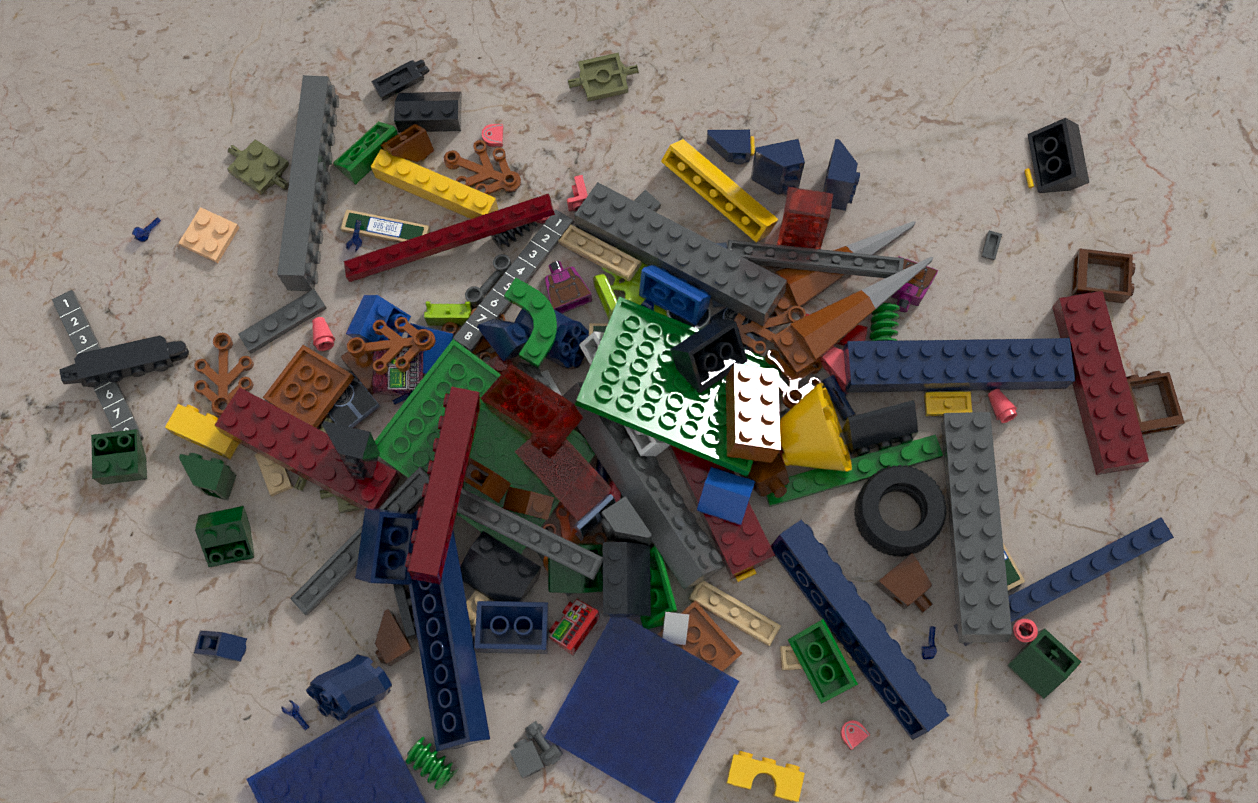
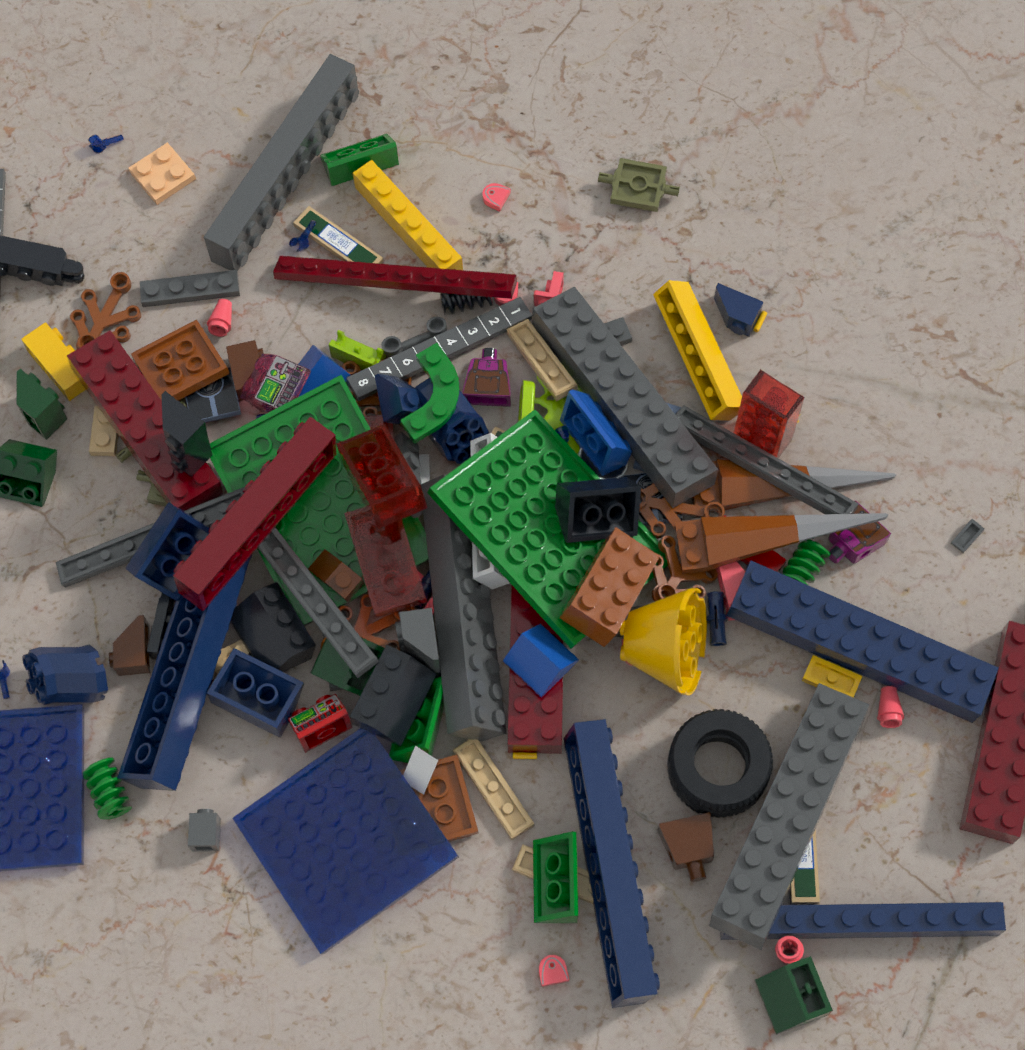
camera: 25 degrees right, 5 degrees down
(258, 167) = (243, 127): olive plate -> none
(370, 310) = (282, 330): blue slope -> none
(393, 345) = (245, 344): dark orange plant -> none
(400, 78) = (430, 100): black hinge -> none
(410, 144) = (403, 168): reddish brown slope -> none
(429, 110) = (441, 144): black slope -> none
(486, 171) = (468, 229): dark orange plant -> none
(486, 480) = (303, 531): reddish brown slope -> none
(550, 753) = (230, 838): dark grey bar -> none
(593, 517) = (383, 622): sand blue slope -> none
(769, 477) = (598, 663): reddish brown torso -> none
(778, 166) = (771, 348): dark blue slope -> none
(787, 779) = (419, 950): yellow arch -> none
(841, 176) = (829, 391): dark blue slope -> none
(863, 468) = (658, 696): green plate -> none
(881, 428) = (744, 668): black slope -> none
(930, 651) = (678, 925): clear blue hand -> none

